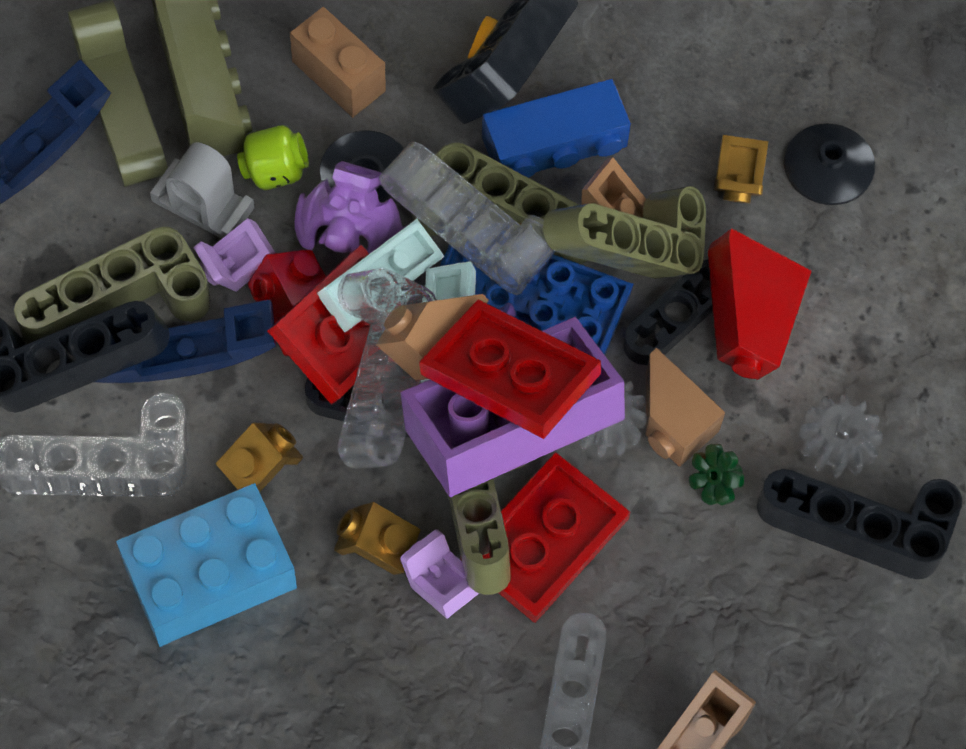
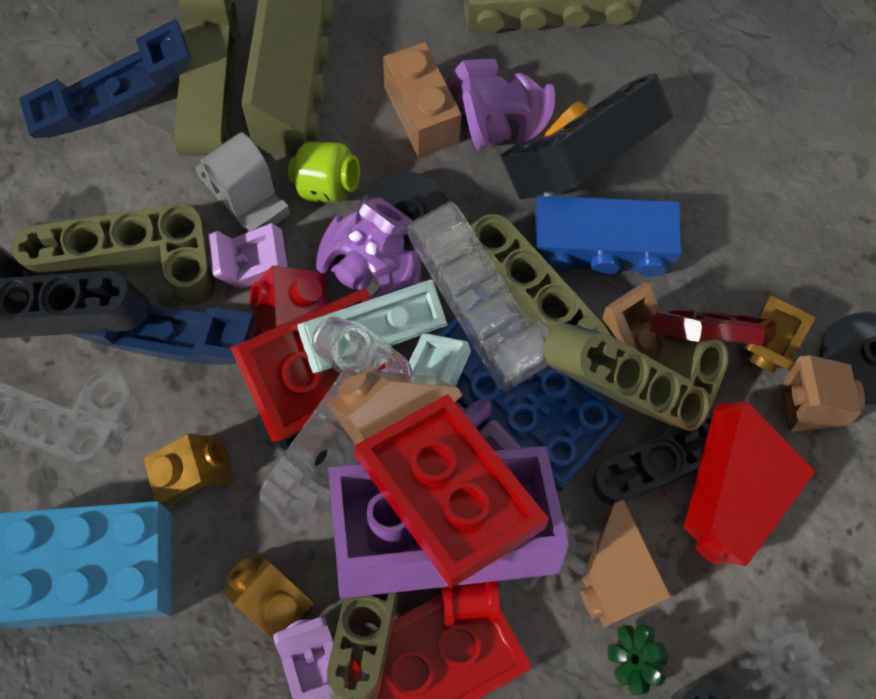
camera: 20 degrees right, 5 degrees up
(406, 41) = (493, 101): none -> medium lavender animal
(557, 471) = (470, 602): none -> red bush
(682, 176) = (715, 326): none -> dark red tile
(795, 206) = (821, 394): none -> medium nougat slope

